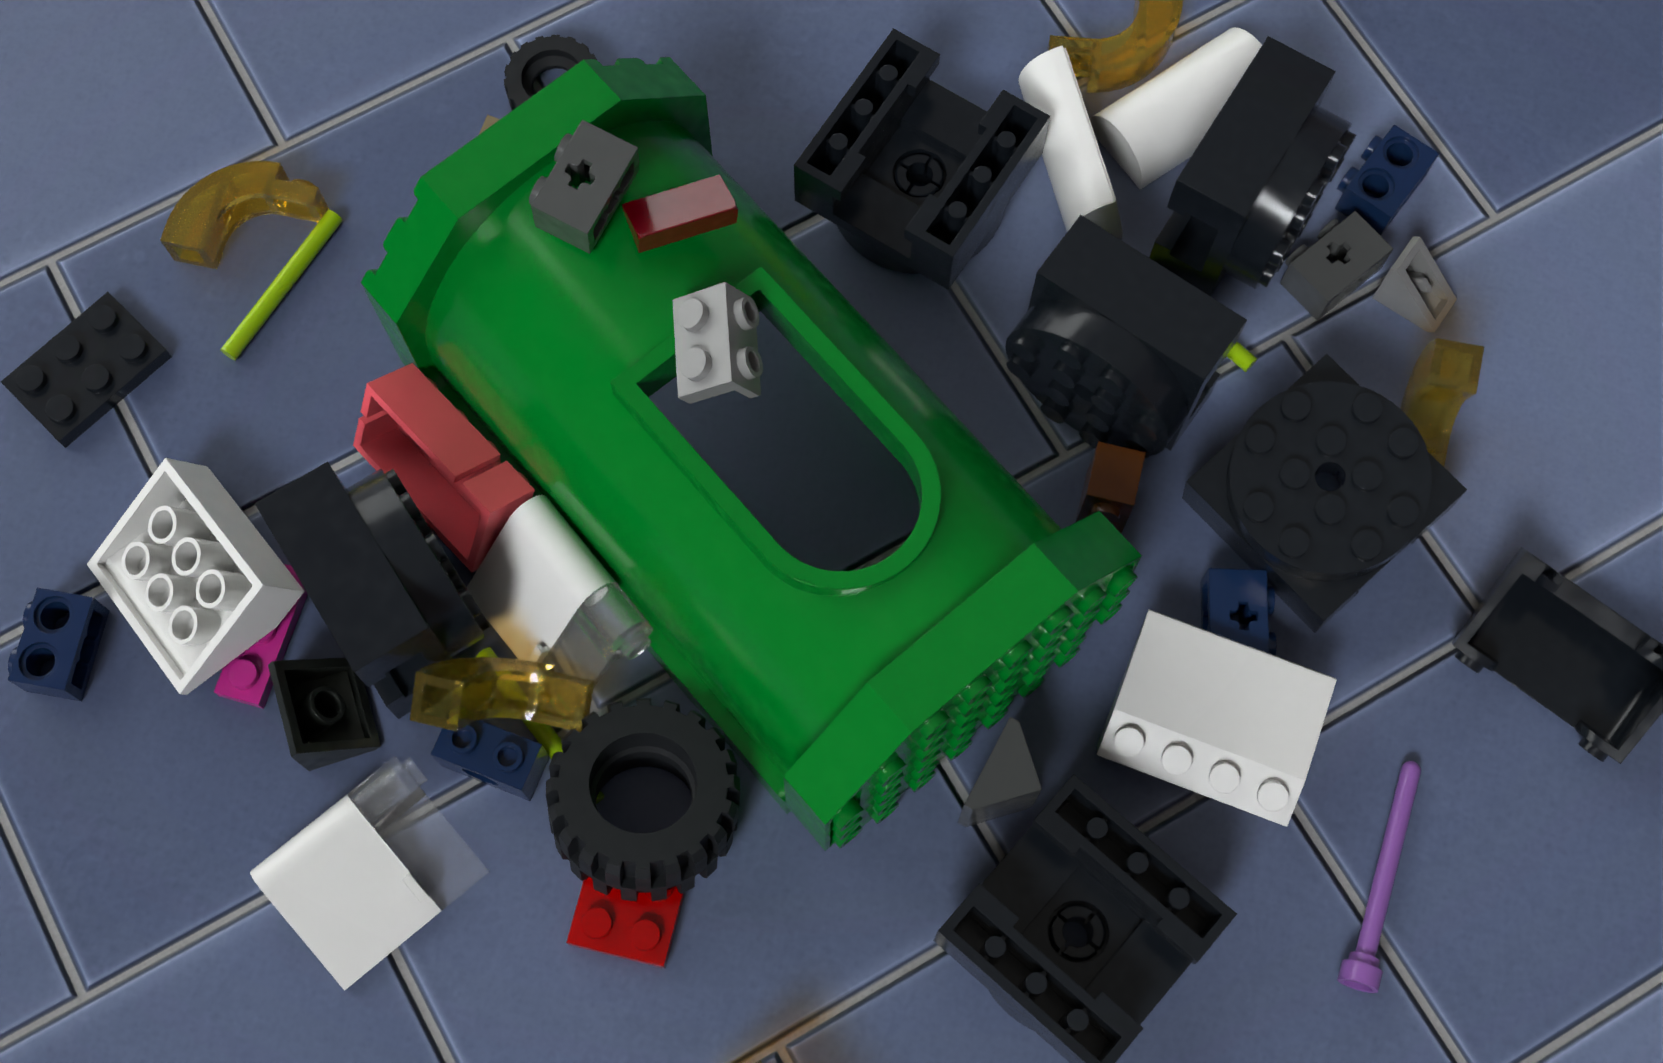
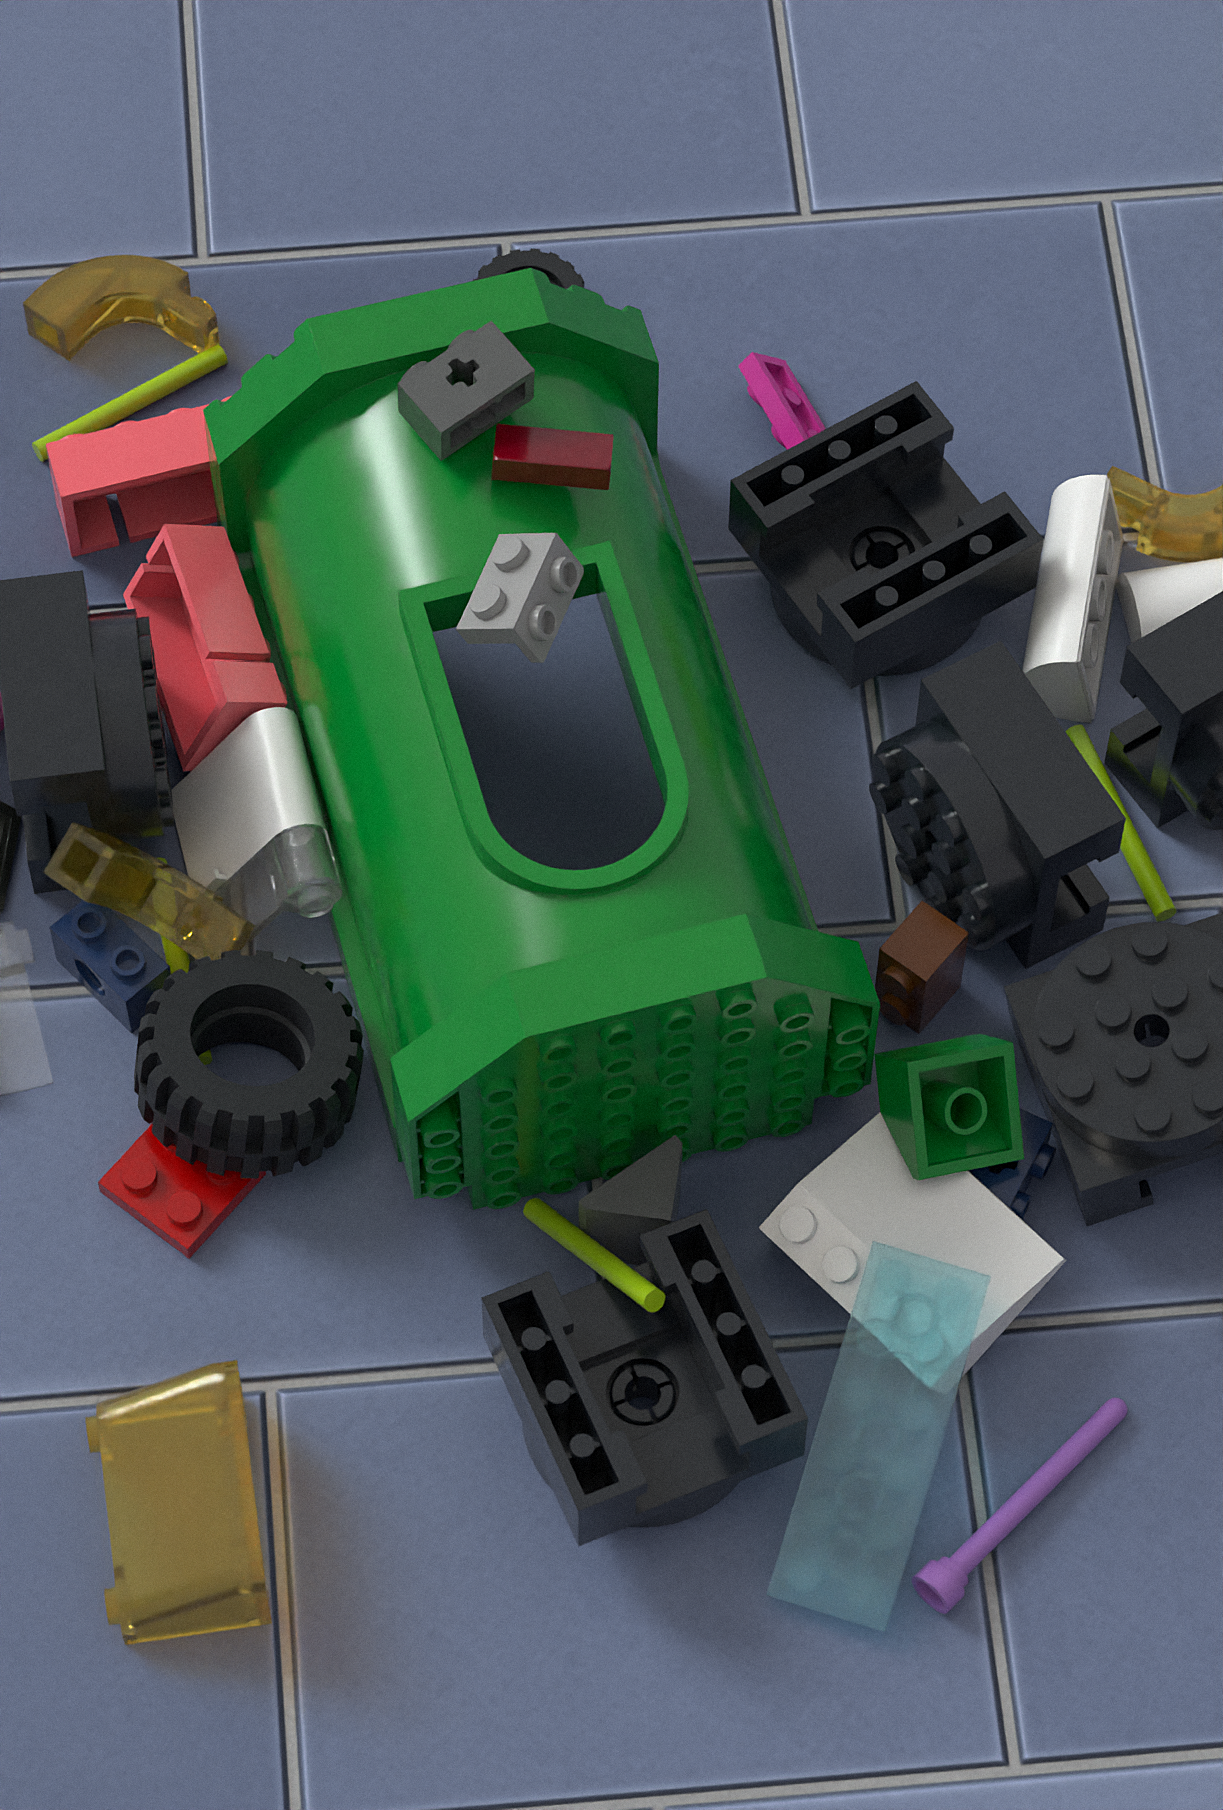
camera: 25 degrees right, 10 degrees down
(331, 334) = (152, 466): none -> coral piece
(796, 93) = (782, 399): none -> dark pink plate
(990, 837) = (594, 1255): none -> lime bar
(1199, 594) = (951, 1104): none -> green slope
(1274, 883) = (879, 1436): none -> clear light blue plate

